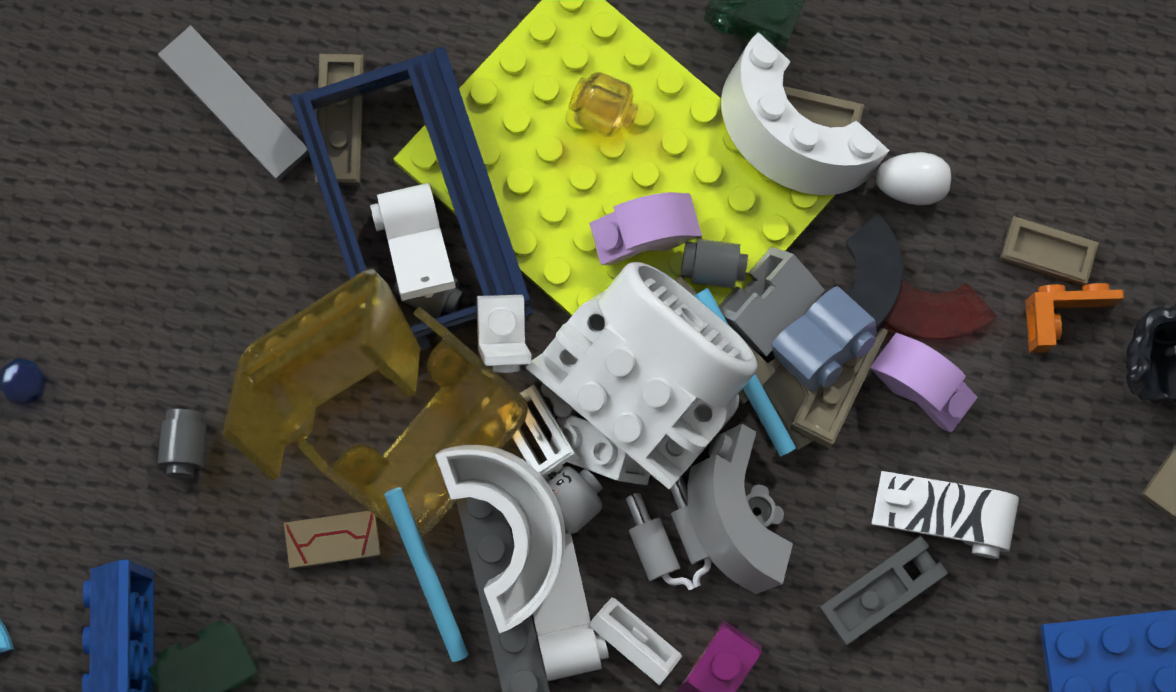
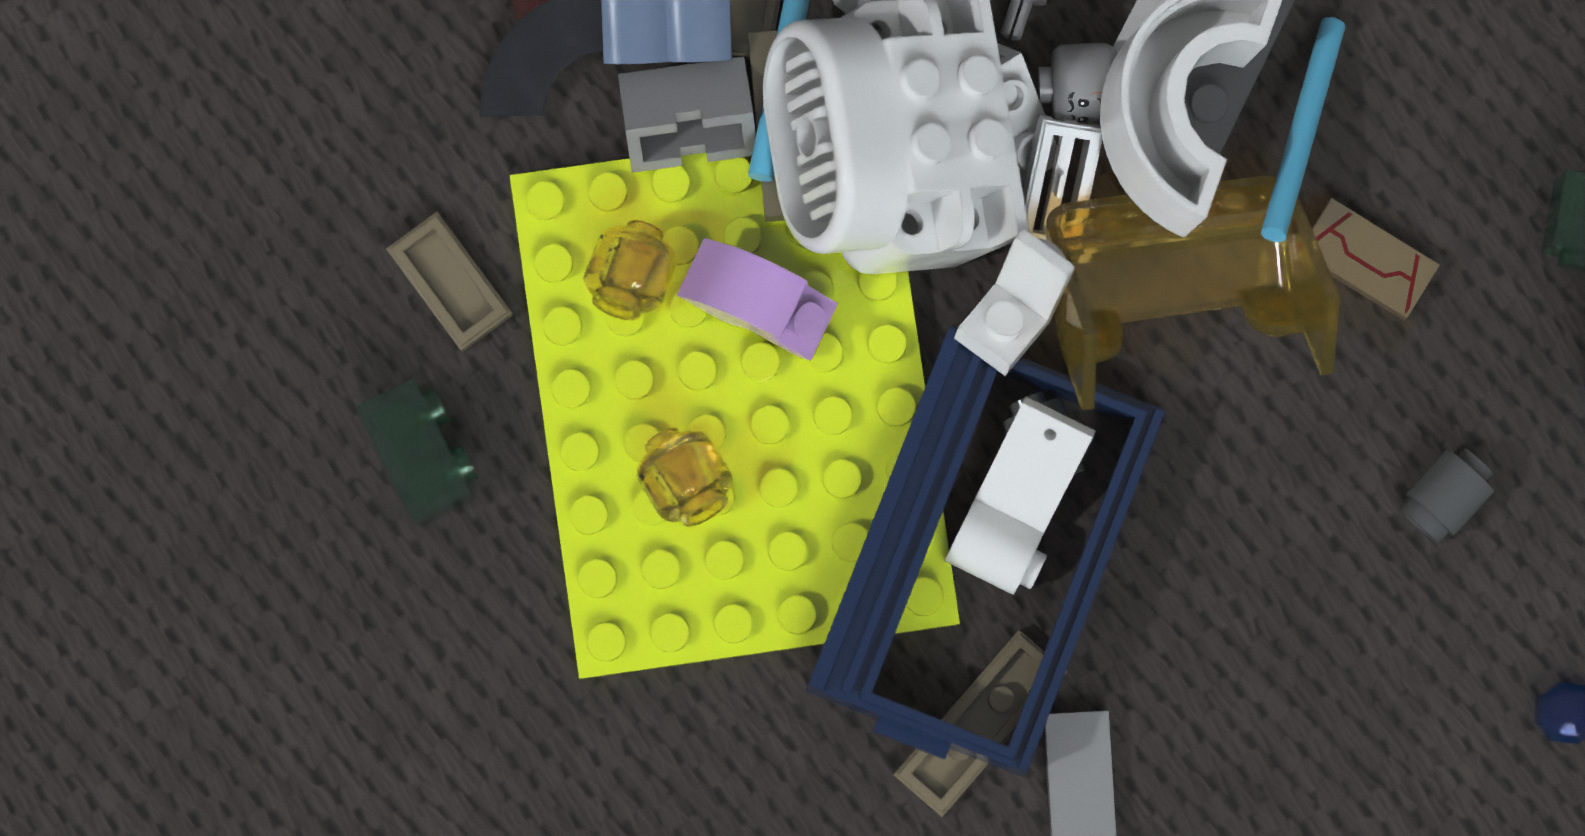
camera: 140 degrees left, 5 degrees up
(313, 360) = (1233, 464): clear yellow windscreen -> none
(713, 263) = (715, 199): dark grey brick -> none
(726, 187) = (630, 270): none -> clear yellow head
(785, 142) = (525, 290): white brick -> none
(915, 178) = (407, 116): white animal -> none

